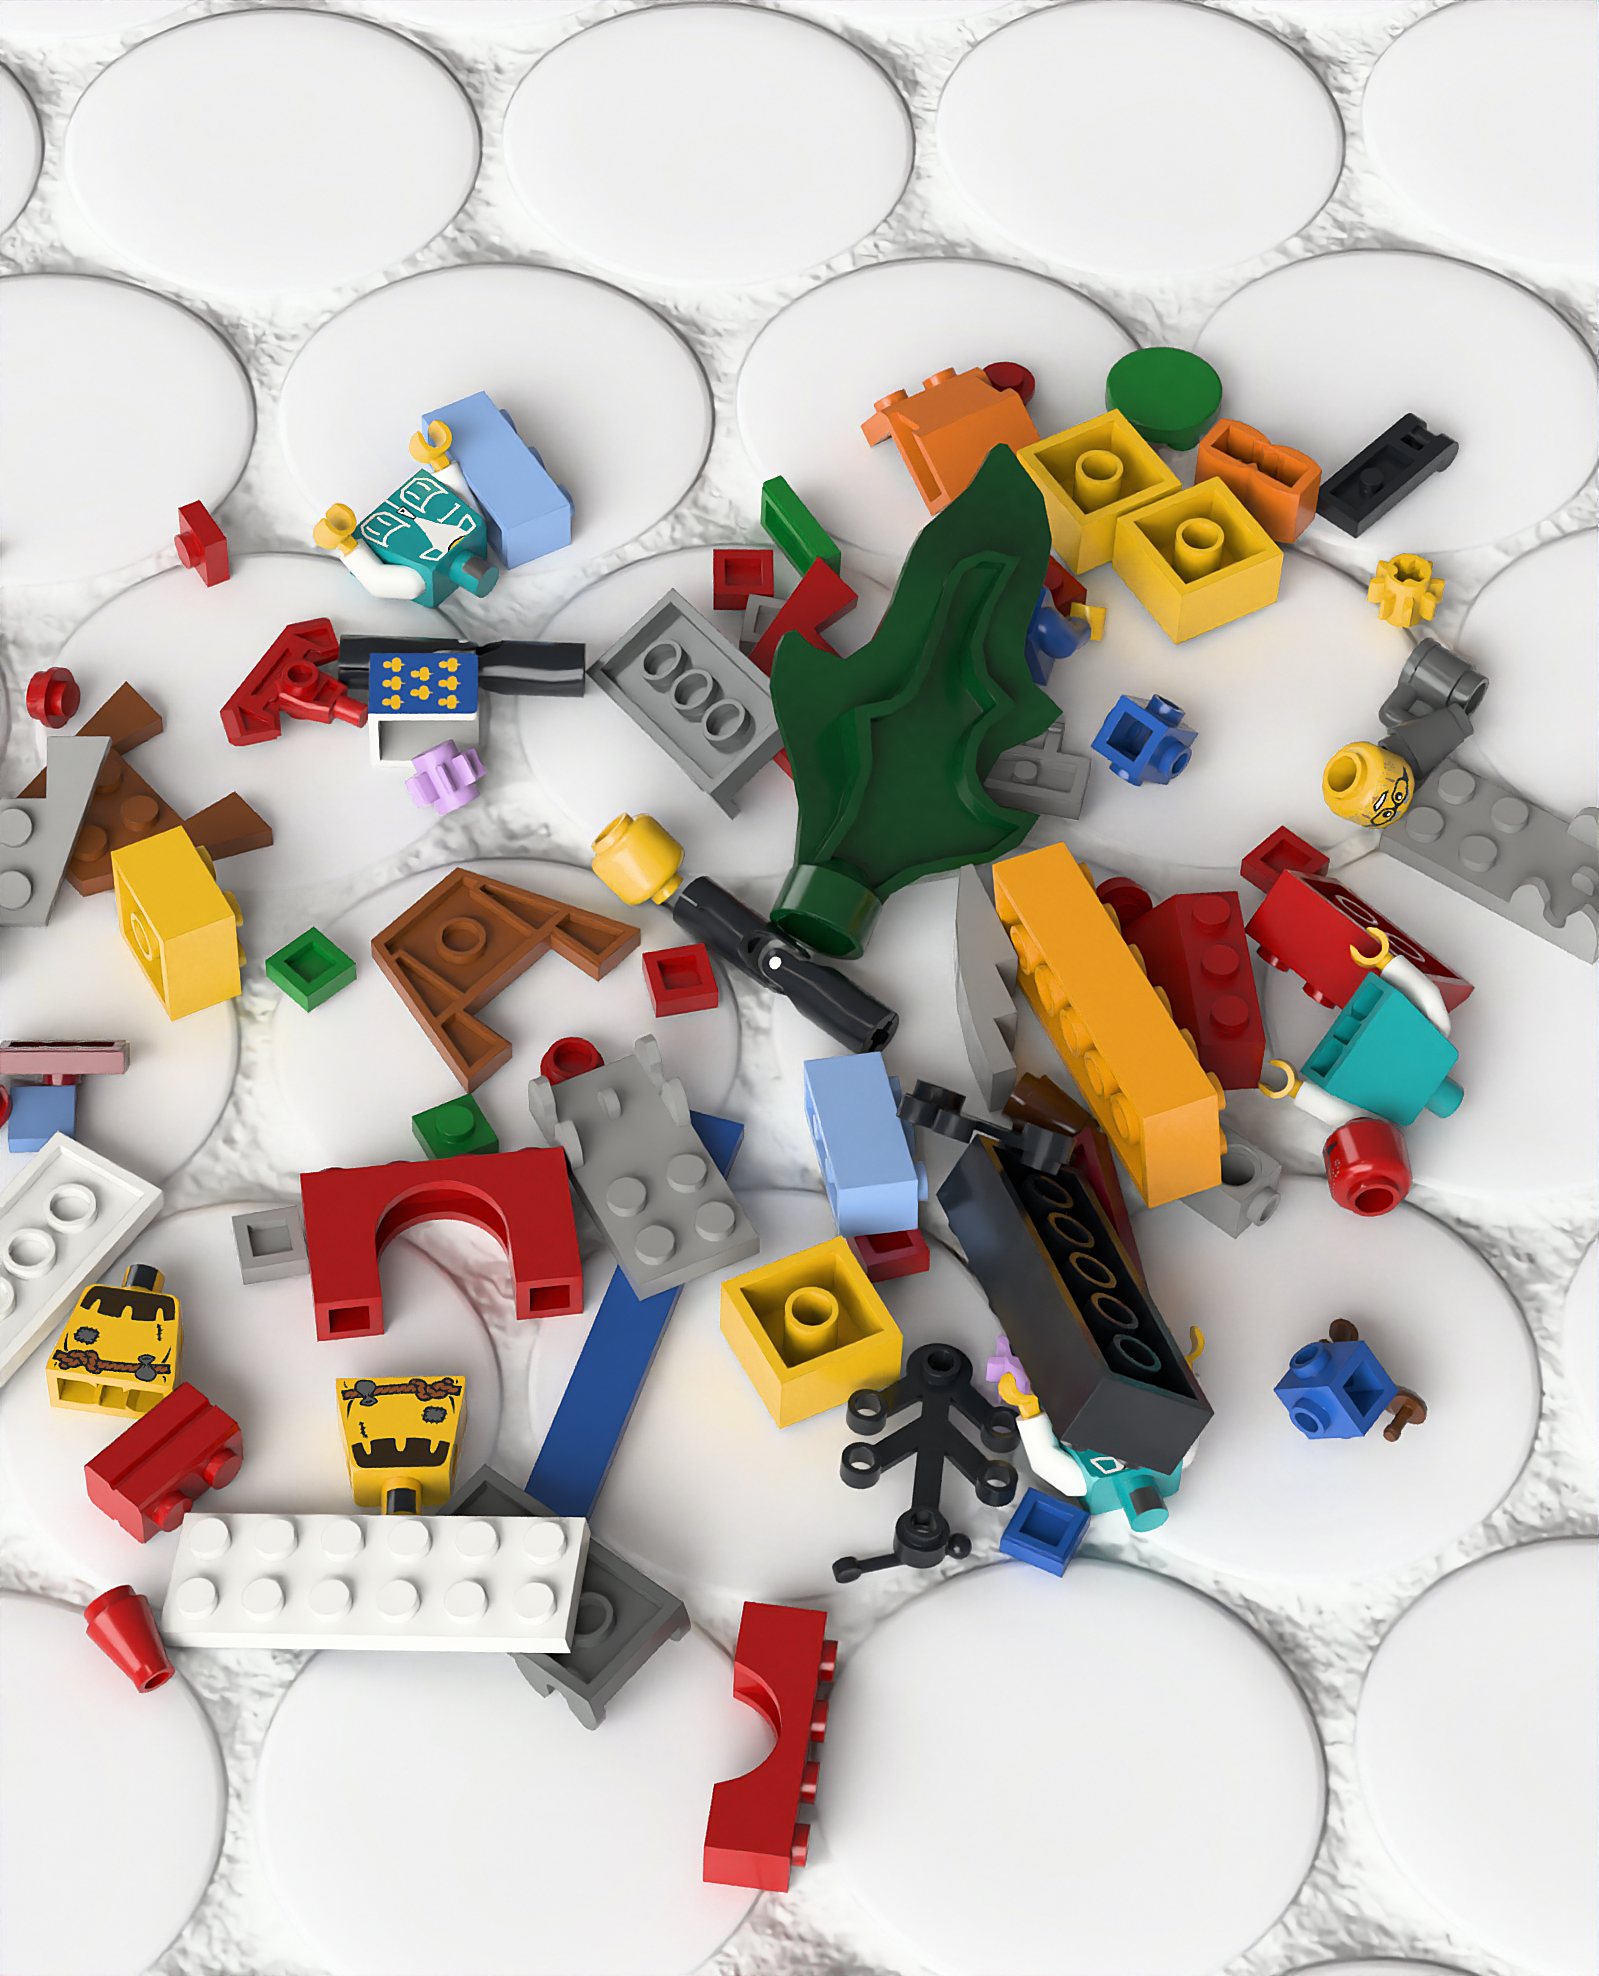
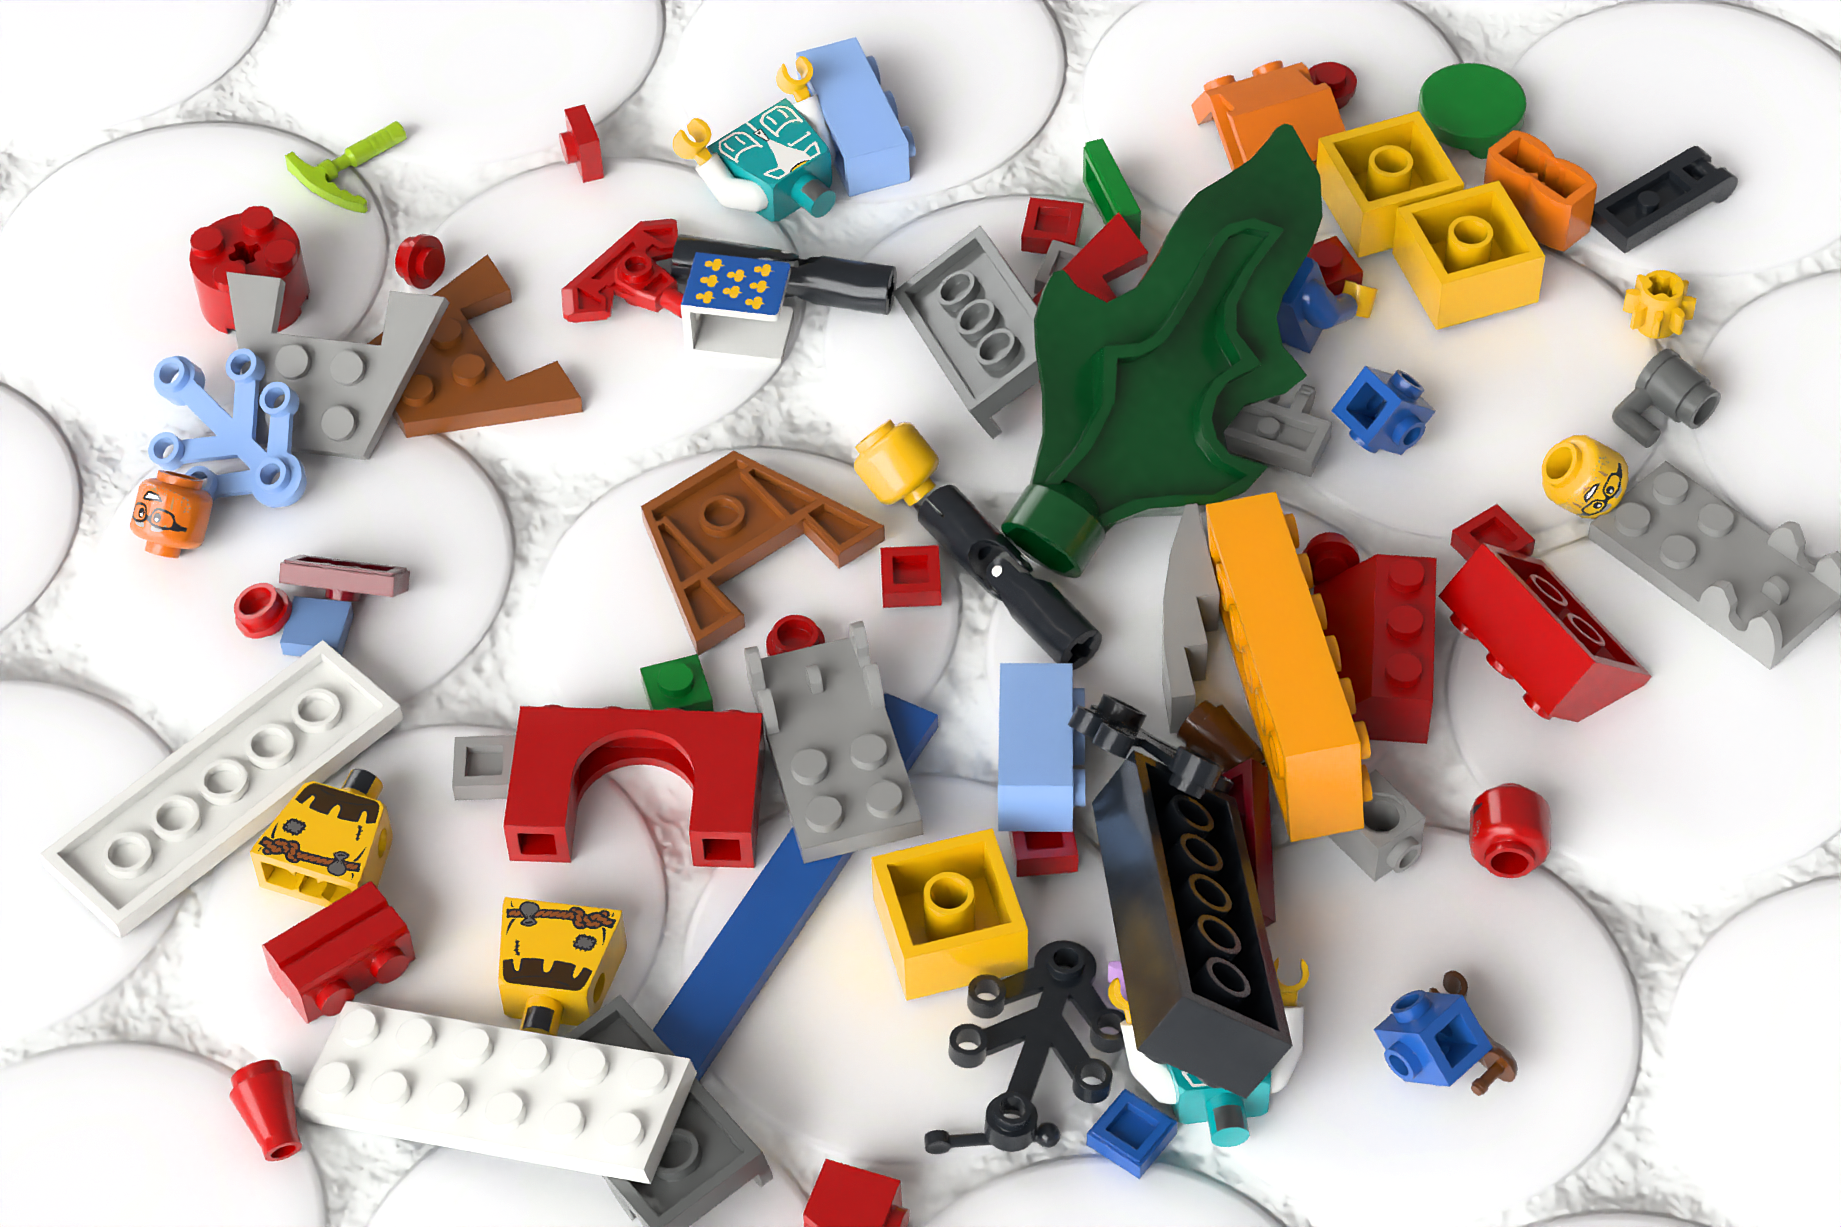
camera: 15 degrees right, 0 degrees up
(178, 922) = (472, 468): yellow brick -> none
(310, 969) = (583, 525): green plate -> none
(445, 777) = (743, 369): lavender gear -> none
(1382, 1052) = (1542, 724): teal torso -> none
(1428, 738) = (1651, 441): dark grey cone -> none

